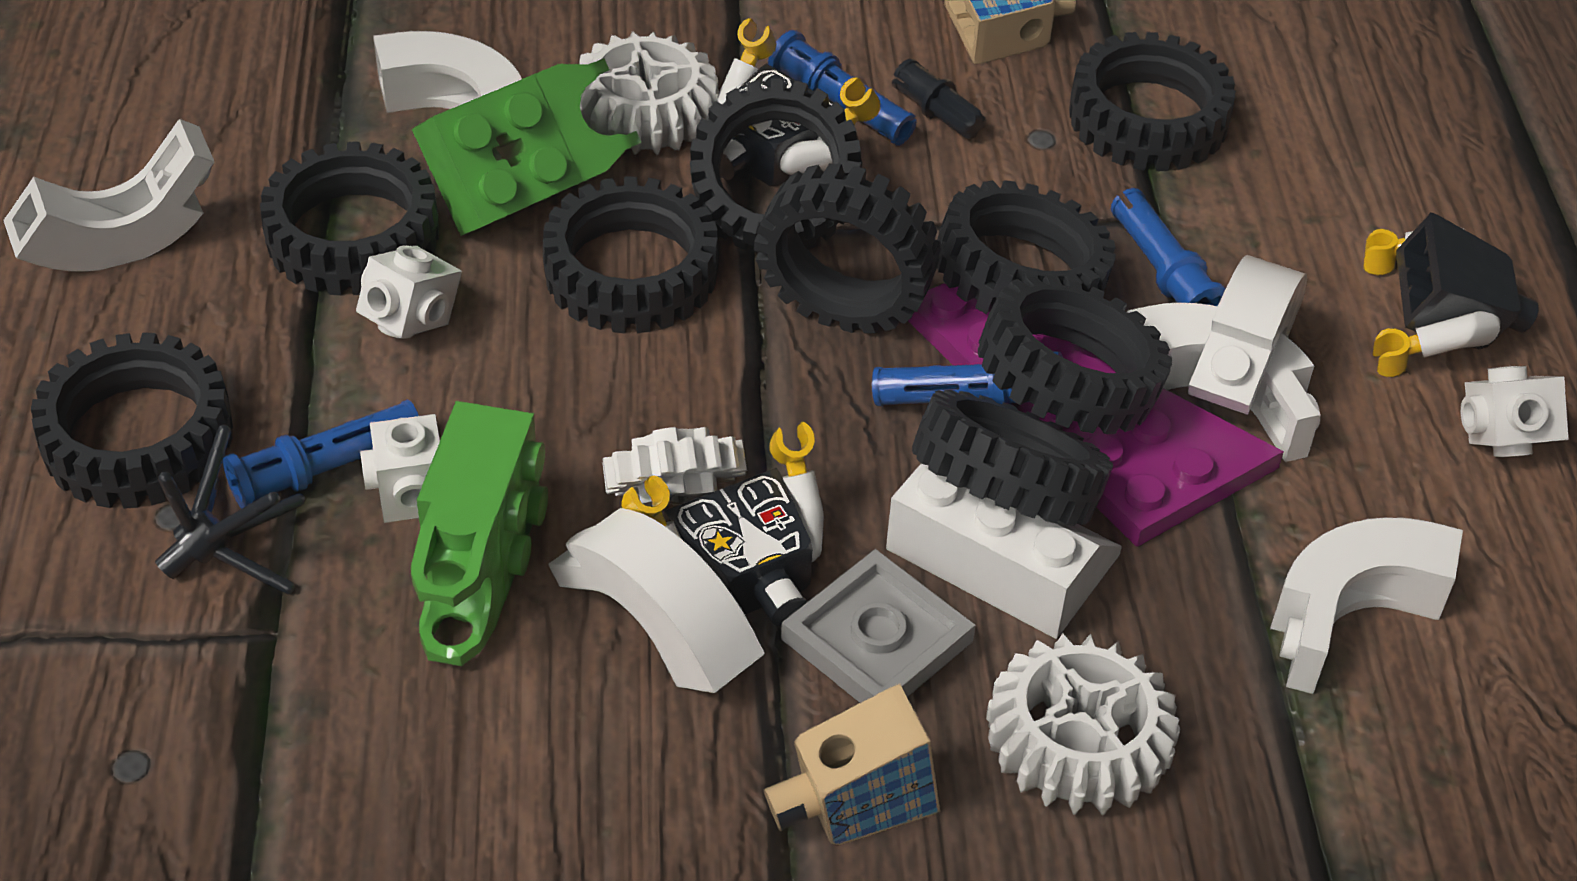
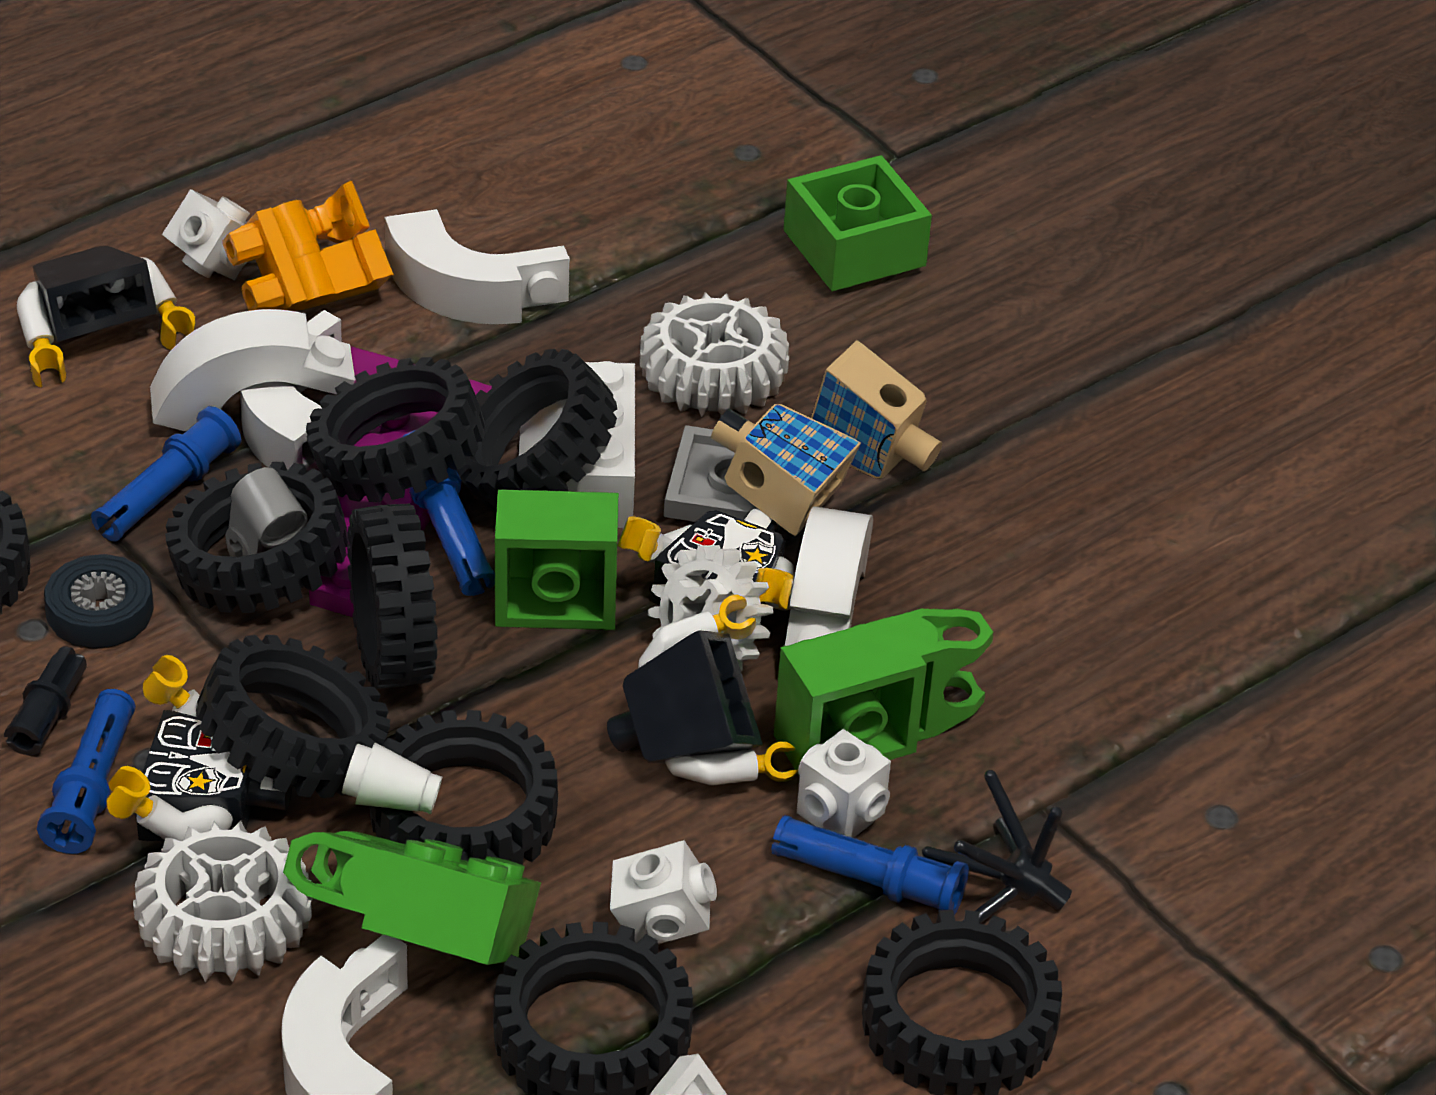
camera: 125 degrees left, 5 degrees down
(575, 387) = (694, 705): none -> black torso
(645, 167) = (390, 781): none -> white cone
(821, 623) = (784, 462): none -> tan torso
(841, 386) = (556, 559): none -> bright green brick
(1024, 234) = (262, 514): none -> light grey piece
(1025, 149) = (73, 595): none -> black bush
(1418, 431) = (290, 259): none -> light orange hips

